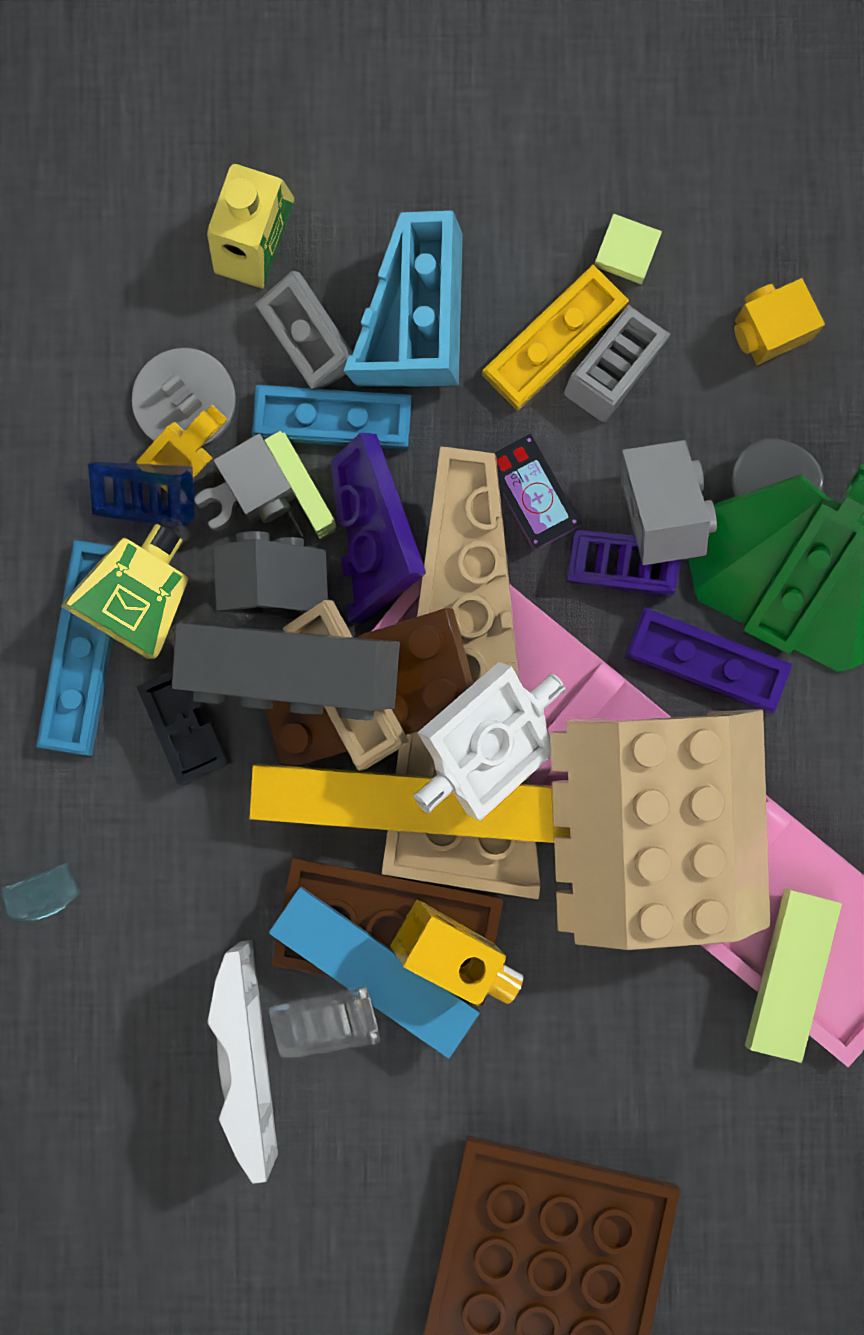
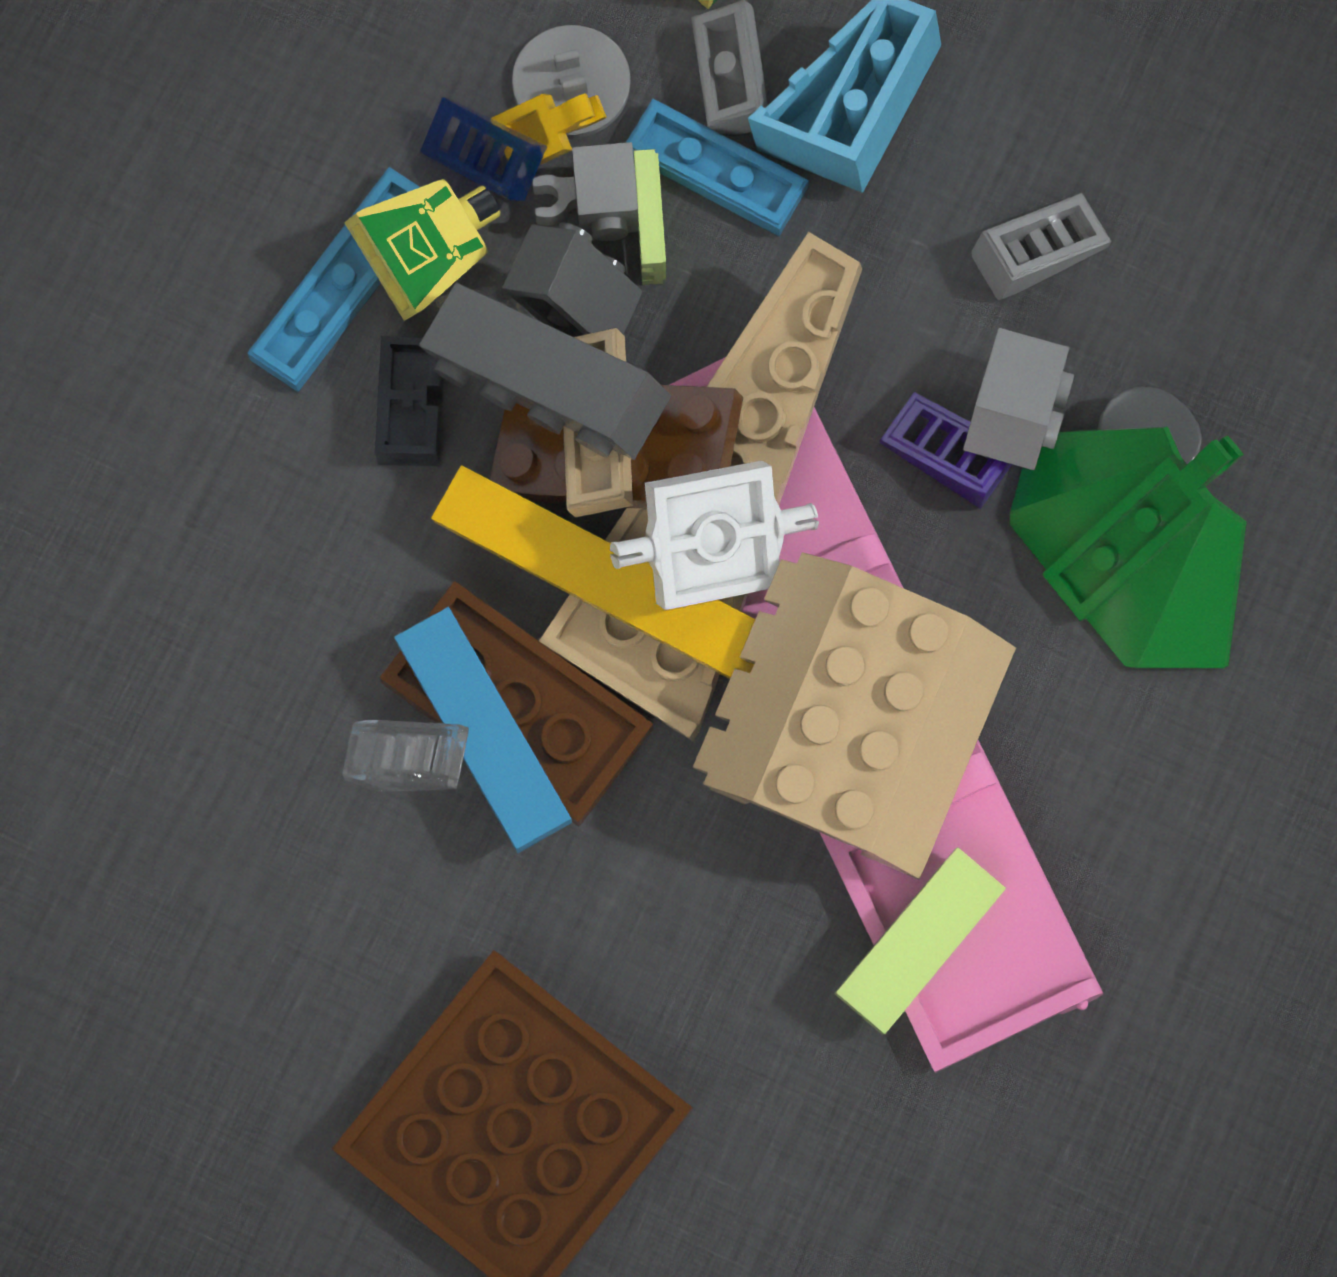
camera: 25 degrees right, 10 degrees down
(41, 894) = (176, 504): clear light blue piece -> none
(243, 1063) = (306, 745): white slope -> none
(379, 538) = (706, 296): dark purple wing -> none
(438, 945) = (566, 715): yellow torso -> none
(534, 493) = (887, 335): tile -> none
(555, 337) = (988, 192): yellow tile -> none
(627, 249) = (1108, 137): yellowish green tile -> none
(708, 660) = (989, 588): dark purple tile -> none
(777, 320) = (1228, 277): yellow brick -> none

